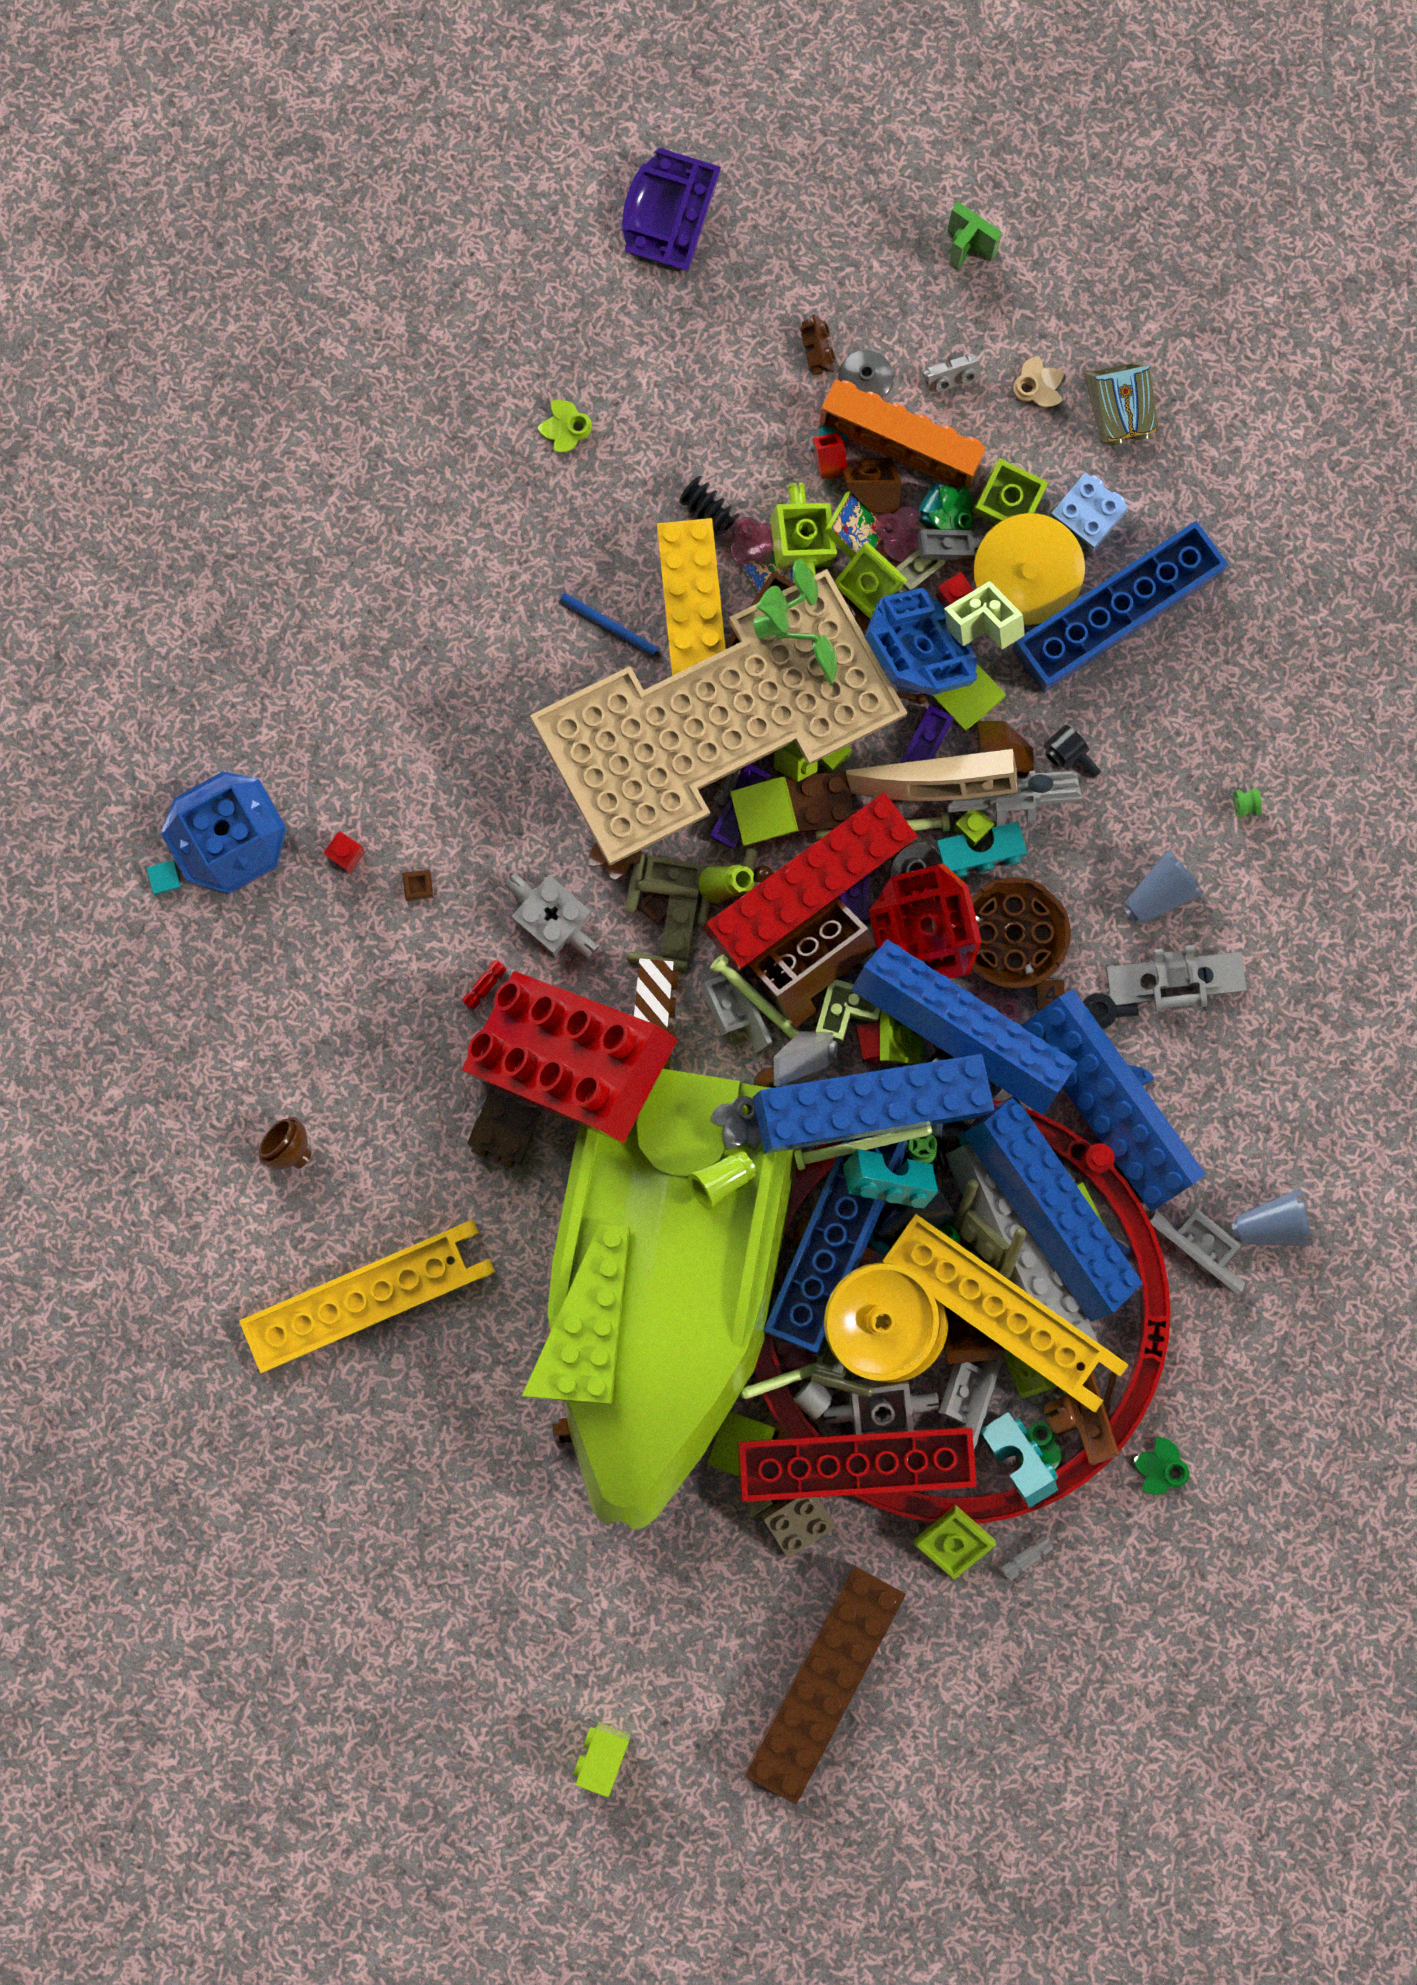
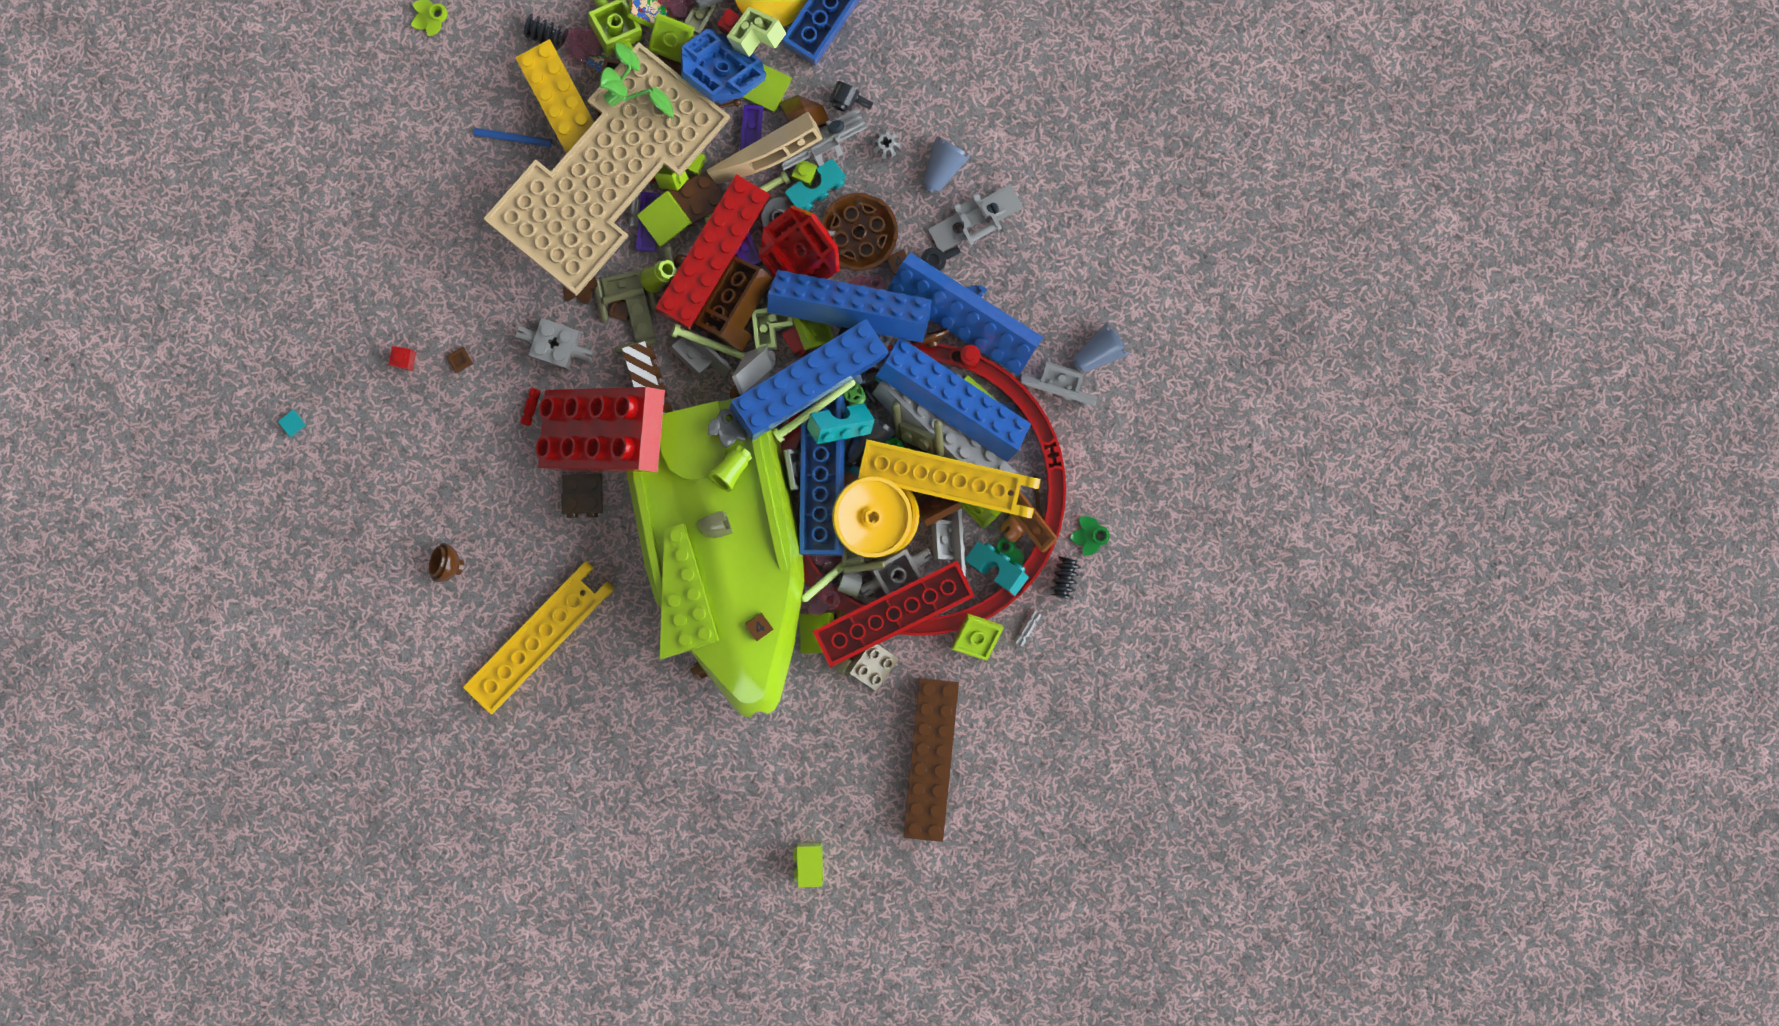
camera: 20 degrees left, 5 degrees up
(244, 852) = (338, 380): blue piece -> none
(669, 1246) = (715, 525): none -> olive brick
(672, 1408) = (759, 626): none -> reddish brown tile
(761, 1406) = (818, 602): none -> clear pink plate
(801, 1210) = (792, 461): none -> light grey slope
(1055, 1114) = (931, 339): none -> reddish brown dish
(1089, 836) = (891, 140): none -> light grey piece
(1106, 1511) = (1065, 578): none -> black piece
(1247, 803) = (976, 84): bright green wheel -> none

